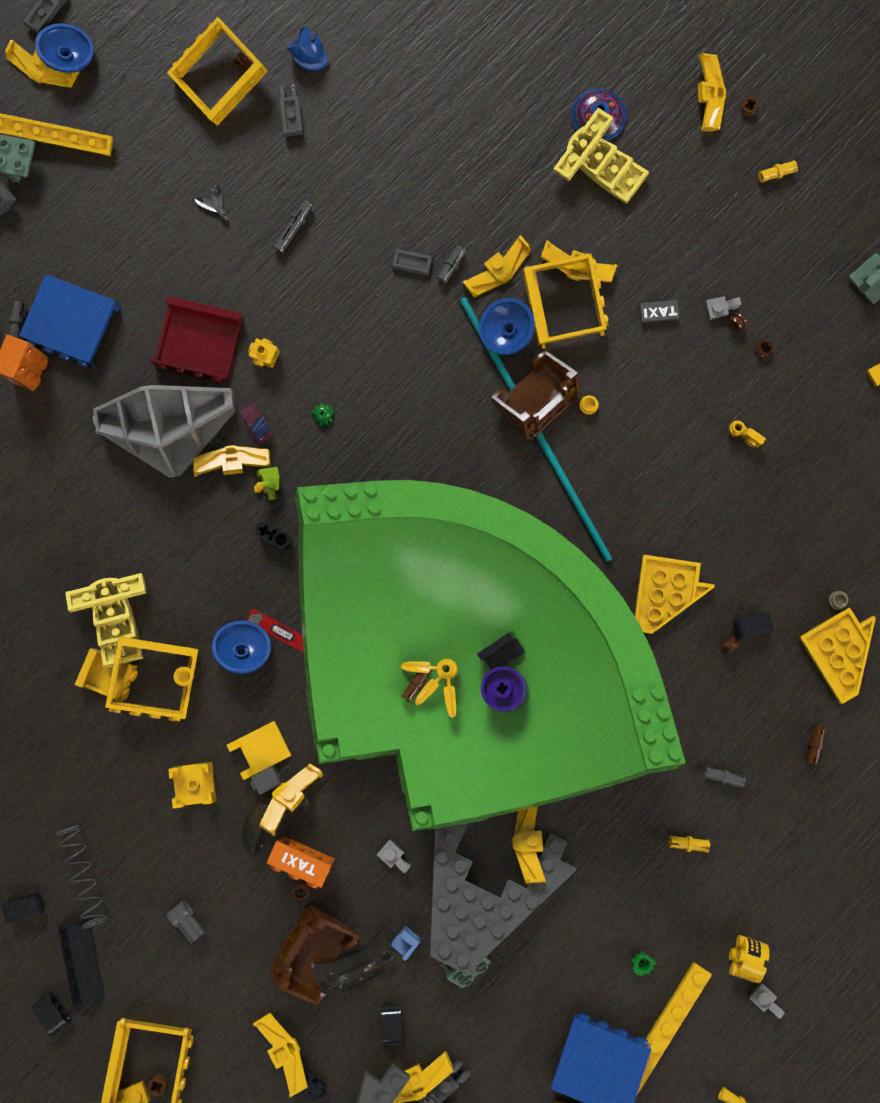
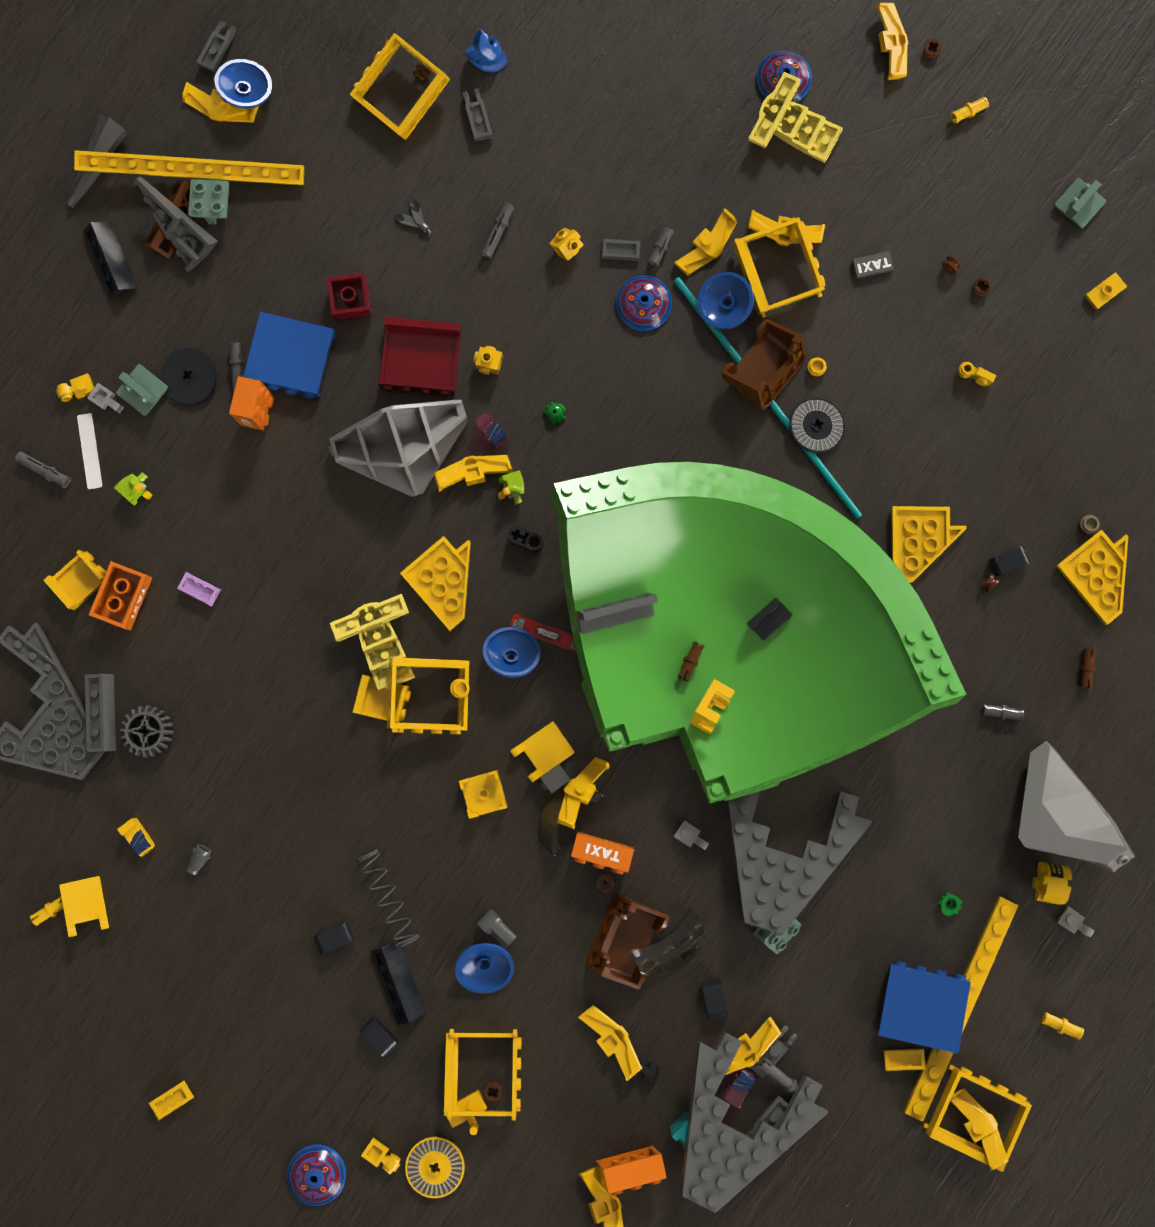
camera: 10 degrees left, 0 degrees up
(136, 271) = (349, 296): none -> dark red brick
(165, 961) = (485, 975): none -> blue dish
(185, 565) = (442, 580): none -> yellow wing
(347, 624) = (616, 612): none -> dark grey panel
(358, 248) = (566, 243): none -> yellow brick
(406, 942) = (715, 917): medium blue panel -> none
(431, 329) = (639, 314): none -> dish
(432, 685) = (706, 661): yellow plant -> none
(433, 721) = (704, 717): none -> yellow panel
(495, 681) = (770, 645): dark purple wheel -> none
(526, 844) = (820, 803): yellow plate -> none
(570, 473) = (820, 412): none -> piece
(689, 843) = (977, 782): yellow pin -> none
(719, 307) = (932, 253): light grey plate -> none
(773, 896) = (1065, 816): none -> light grey panel

